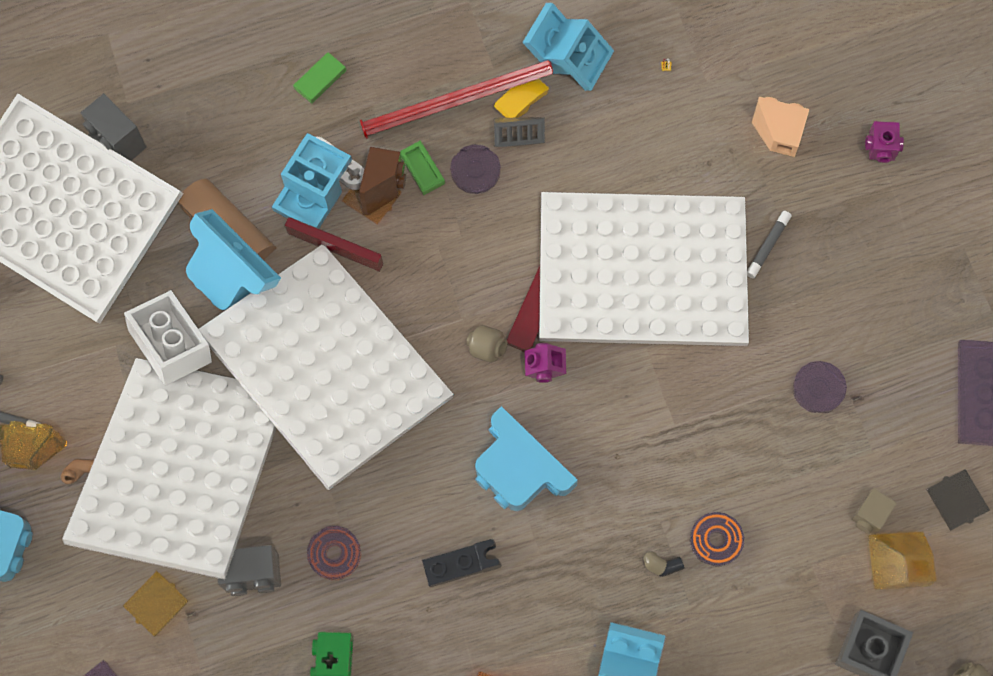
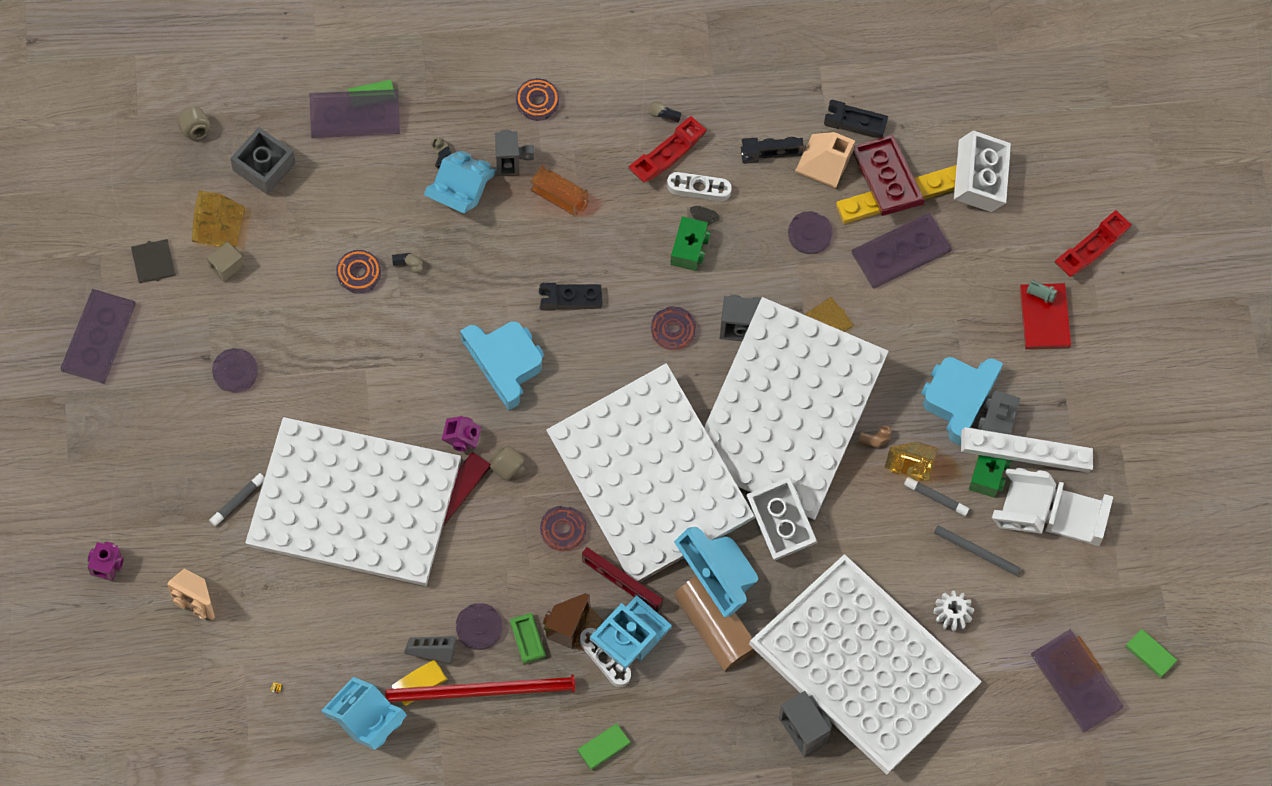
camera: 175 degrees left, 5 degrees down
(415, 304) = (563, 541): none -> tile

